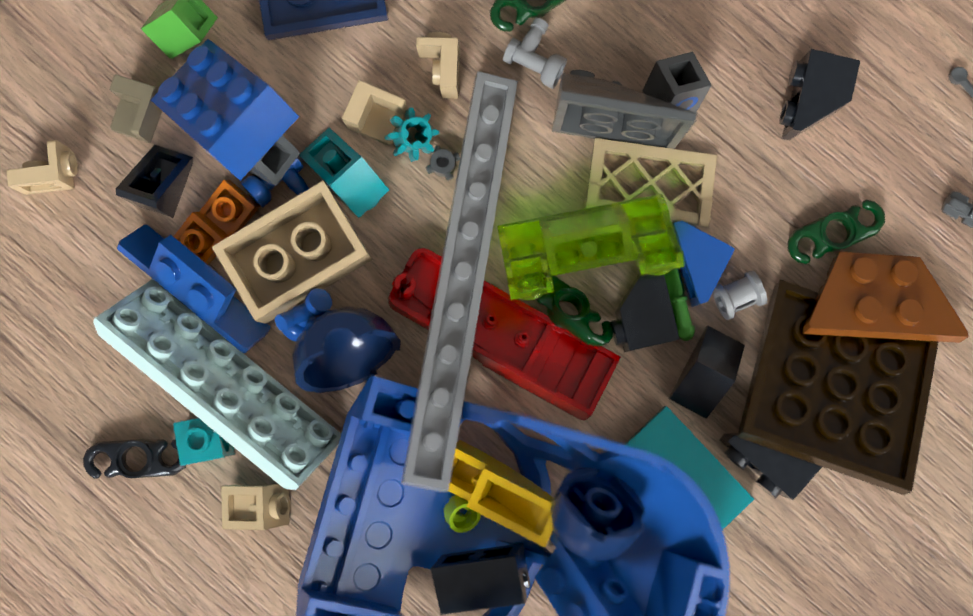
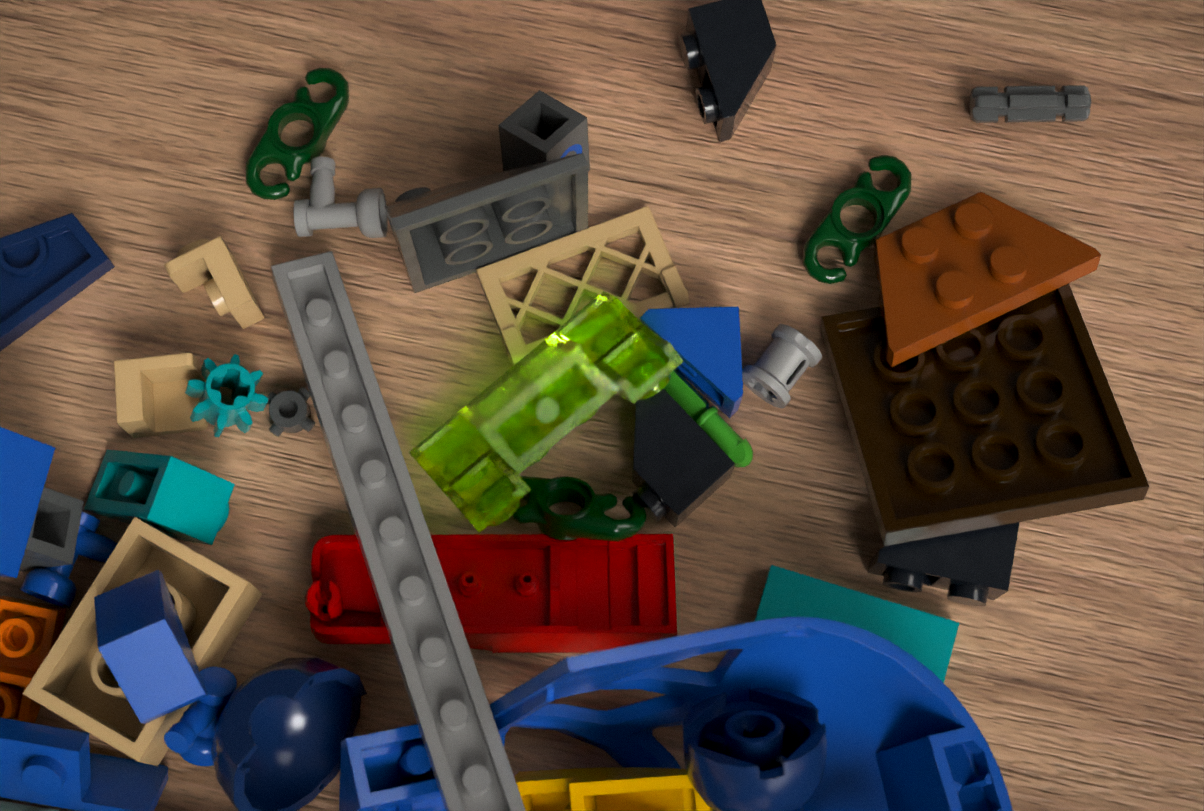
camera: 30 degrees left, 10 degrees down
(292, 260) = (147, 647): none -> blue slope
(708, 372) = (800, 491): black slope -> none

